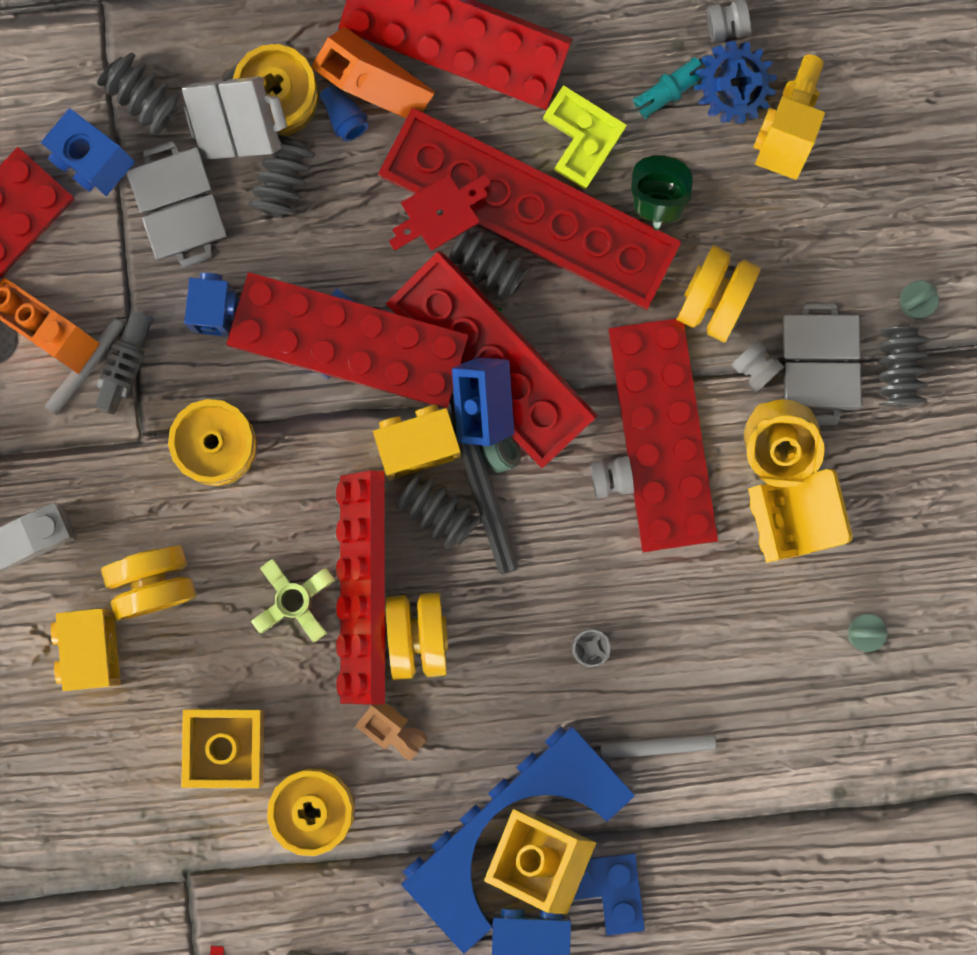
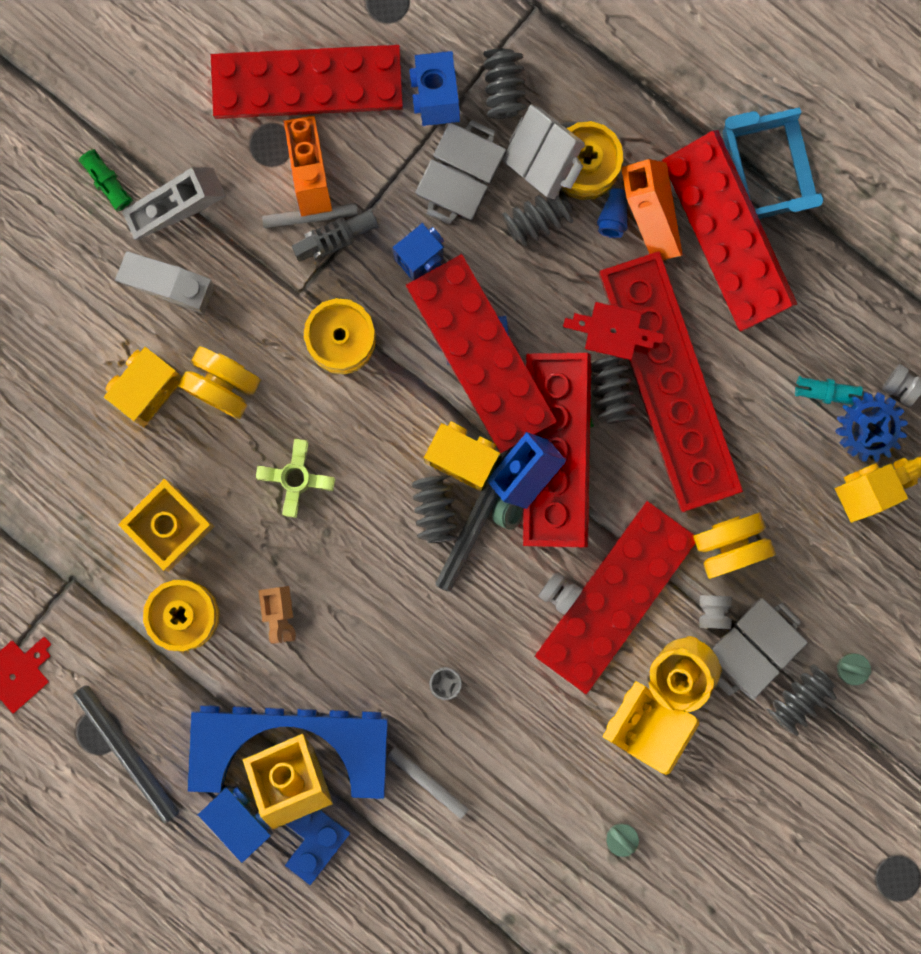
camera: 40 degrees right, 0 degrees up
(361, 588) = (343, 511): red plate -> none
(419, 635) = (351, 576): yellow wheel -> none
(592, 133) = (752, 375): neon yellow plate -> none
(661, 188) = (762, 447): dark green piece -> none

